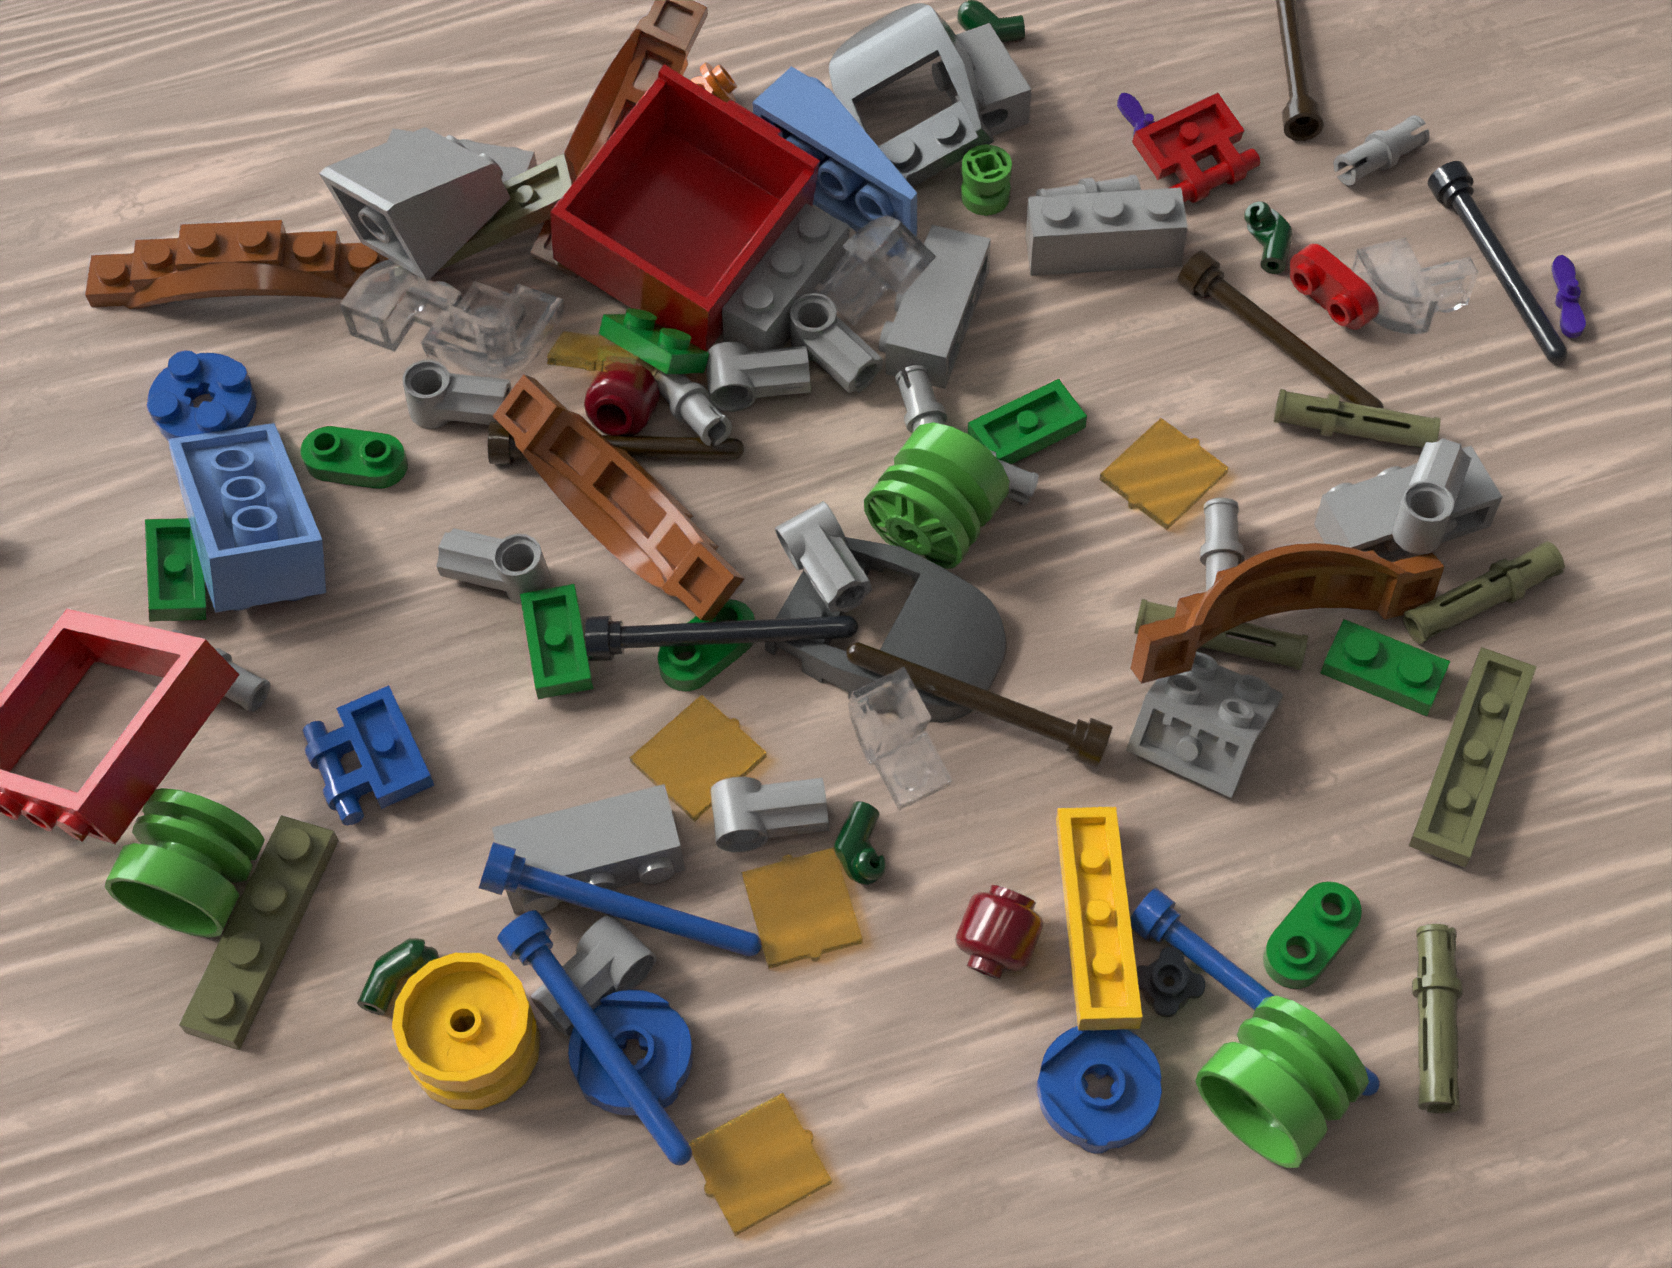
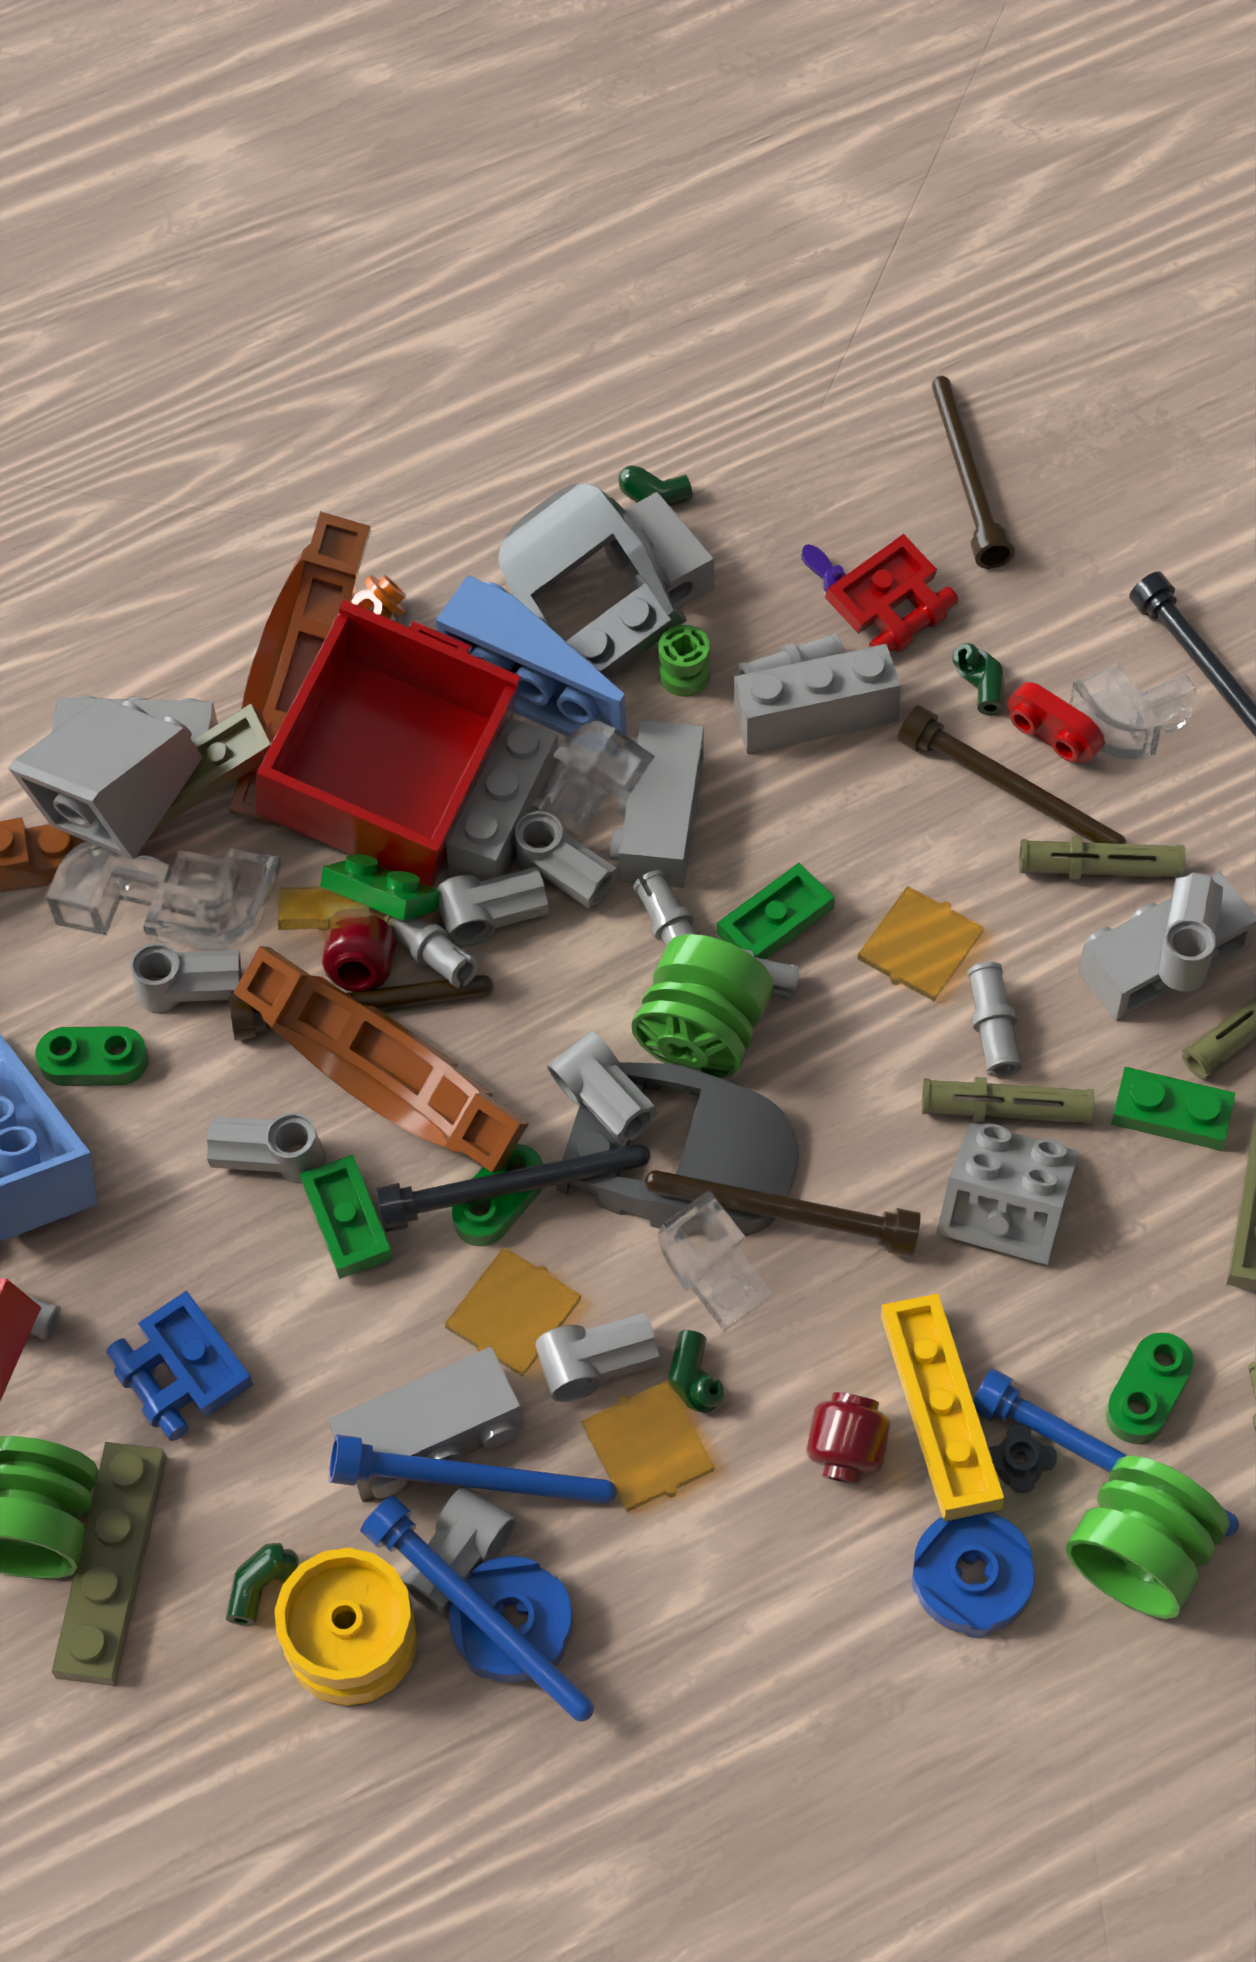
camera: 10 degrees left, 0 degrees up
(759, 1164) = (658, 1706): clear yellow piece -> none
(1279, 583) = (1056, 1042): dark orange piece -> none
(1381, 150) = (1077, 569): light grey pin -> none

